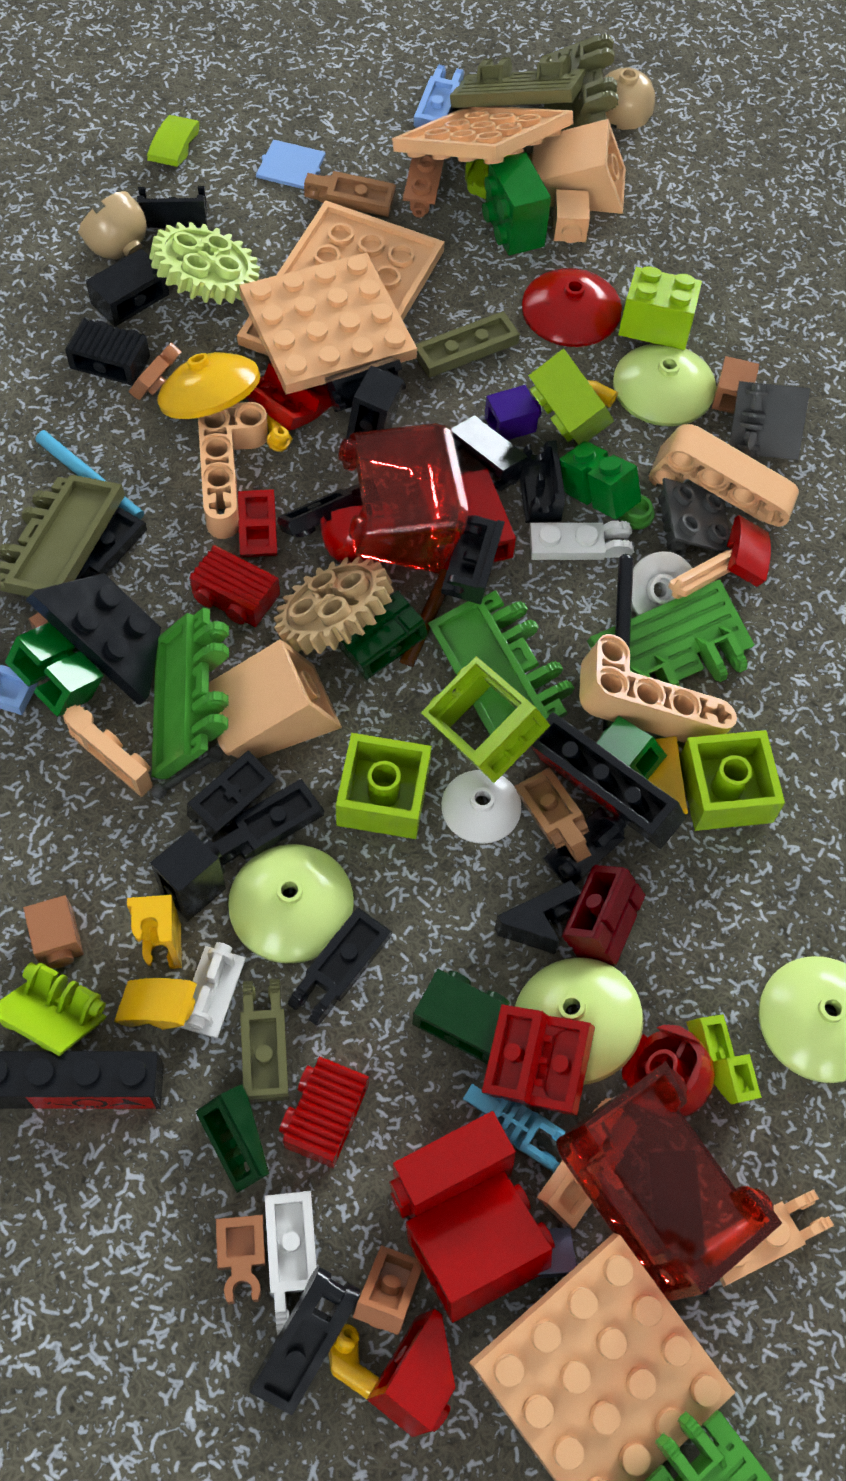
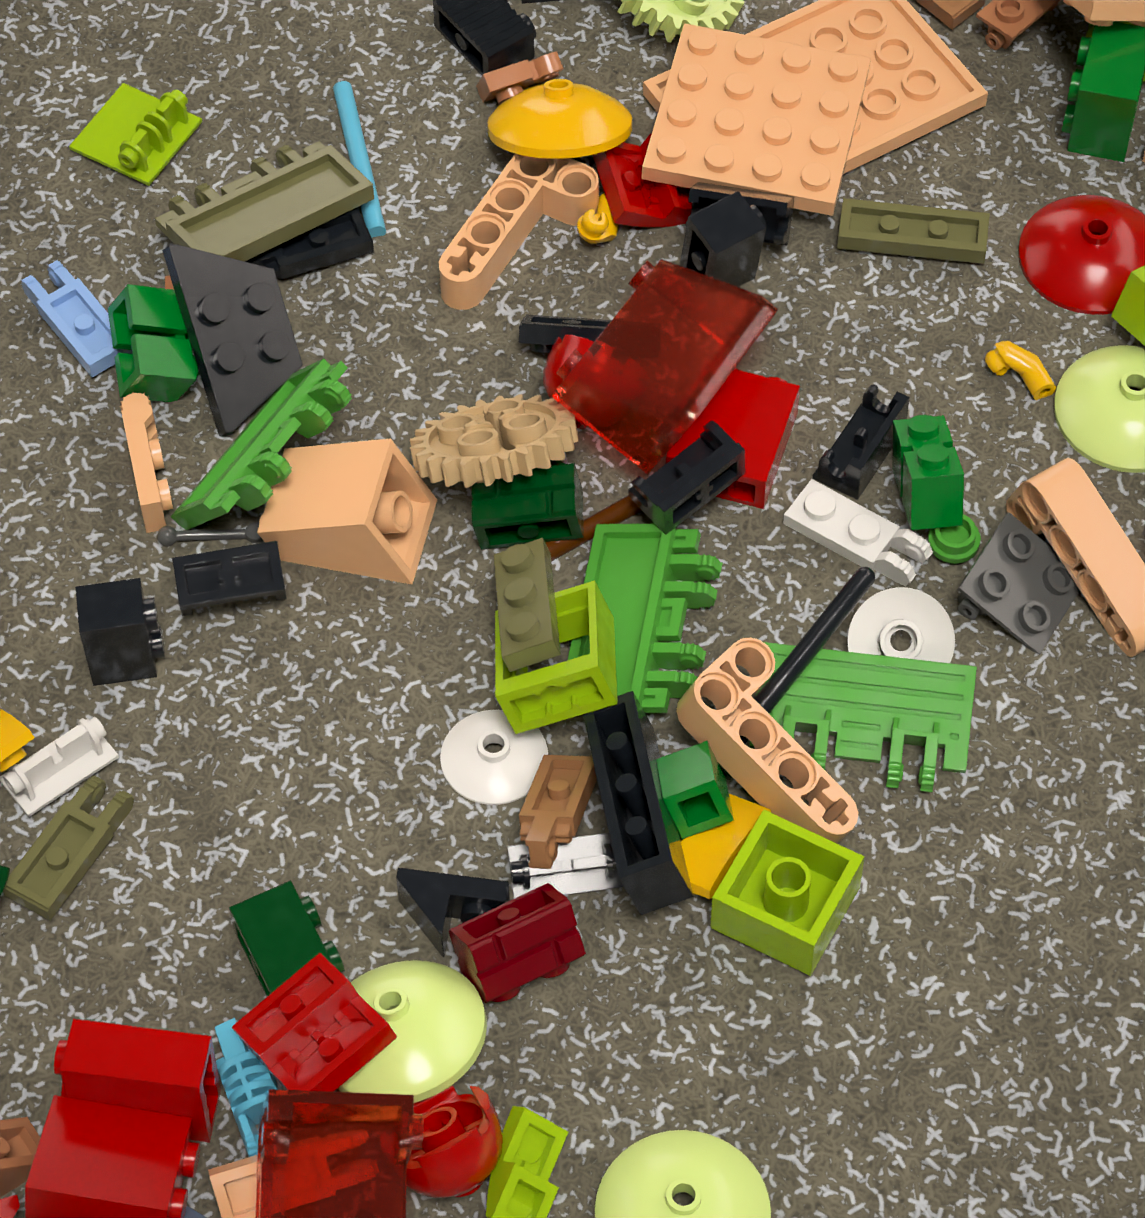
camera: 40 degrees right, 5 degrees down
(155, 924) = (50, 664): yellow hinge -> none
(234, 586) = (412, 363): red brick -> none
(257, 523) = (496, 314): red slope -> none
(269, 822) = (248, 634): black hinge -> none
(295, 926) = (212, 755): yellowish green dish -> none
(324, 1111) = (71, 950): red brick -> none
(341, 963) = (205, 821): black hinge -> none
(383, 785) = (393, 664): lime brick -> none
(445, 696) = (526, 604): none -> olive plate
(490, 450) = (823, 368): hinge -> none
(512, 412) = (896, 341): dark purple brick -> none
(568, 393) = (963, 356): lime brick -> none
(700, 575) = (967, 650): light nougat axle -> none
(749, 551) = (1050, 657): red slope -> none

